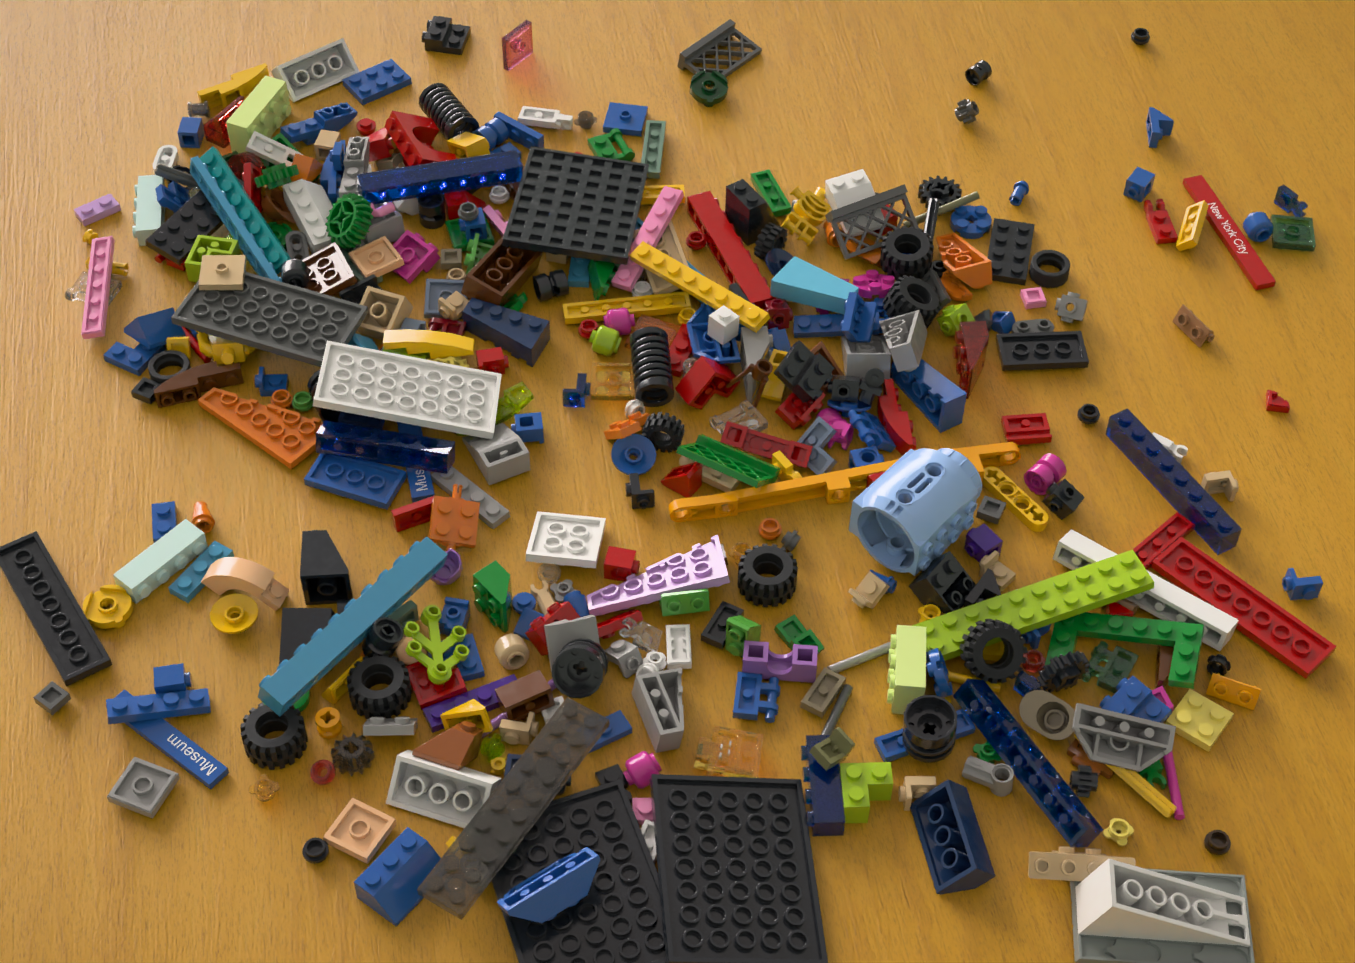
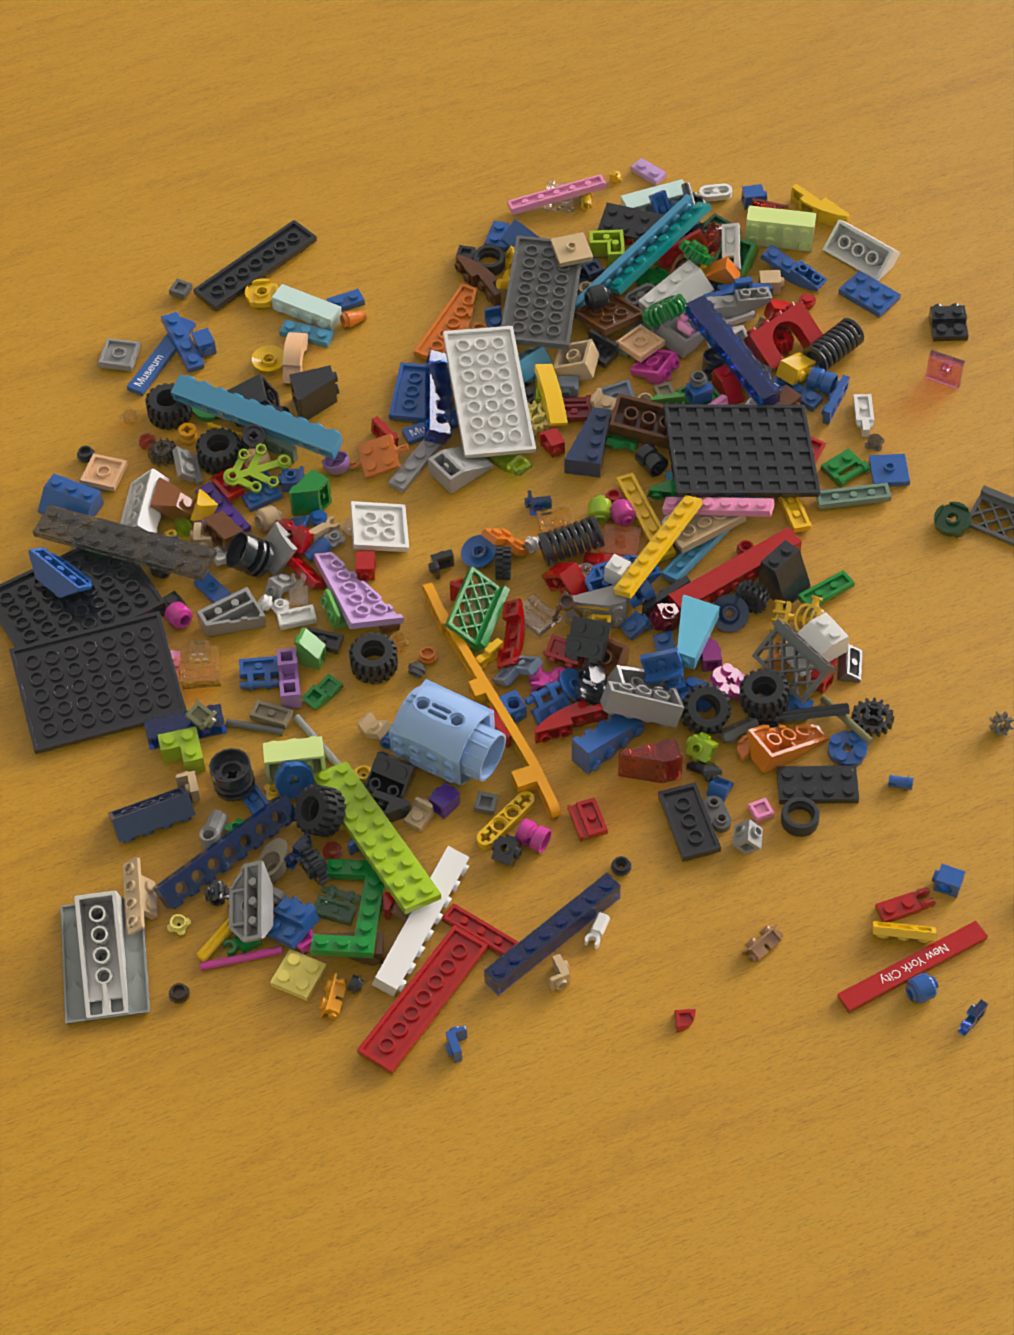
camera: 80 degrees right, 5 degrees up
(198, 109) = (783, 194): clear smoke bush -> none
(529, 427) = (489, 481): blue brick -> none
(1293, 233) = (928, 1022): clear green plate -> none

